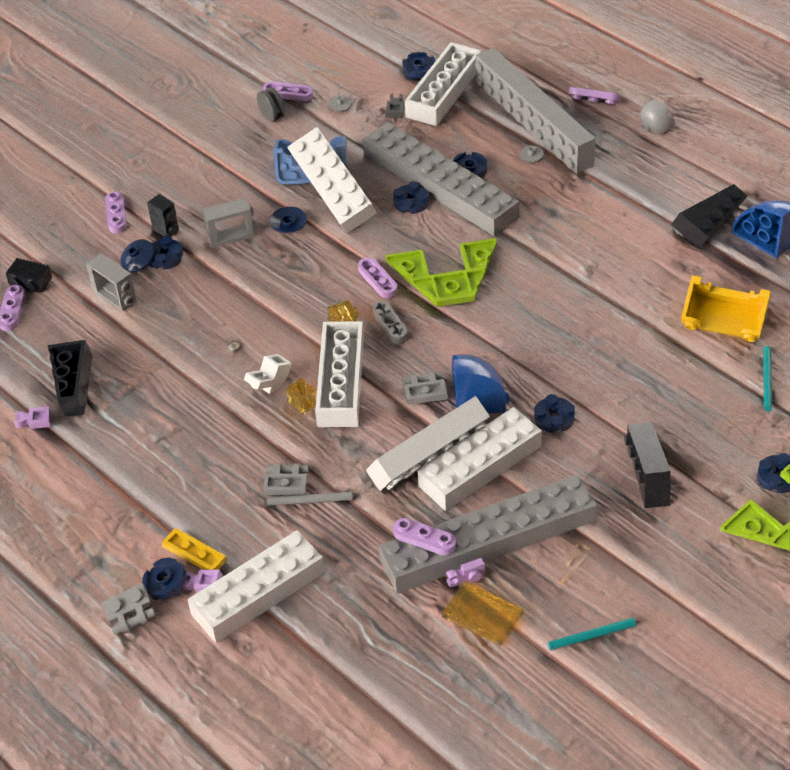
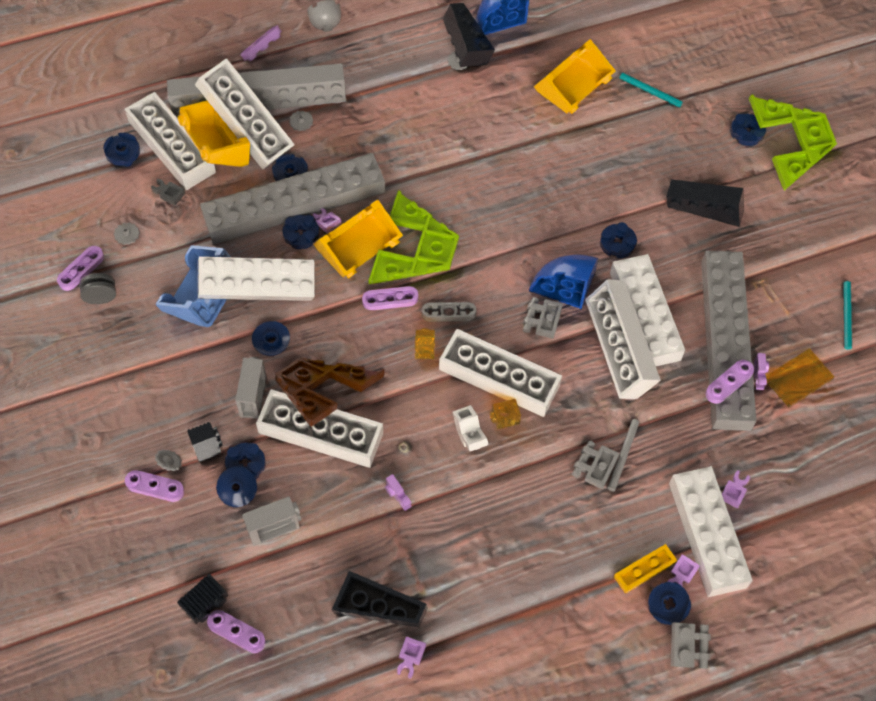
camera: 70 degrees left, 15 degrees up
(139, 208) = (168, 460): none -> light grey piece
(185, 351) = (394, 489): none -> lavender plate
(215, 280) = (335, 435): none -> white brick
(261, 250) = (305, 374): none -> reddish brown wing
(313, 594) = (734, 491): none -> lavender plate
(420, 230) = (359, 239): none -> yellow windscreen
(430, 208) = (327, 222): none -> lavender plate
(462, 100) = (213, 136): none -> yellow windscreen
(491, 103) = (244, 113): none -> white brick

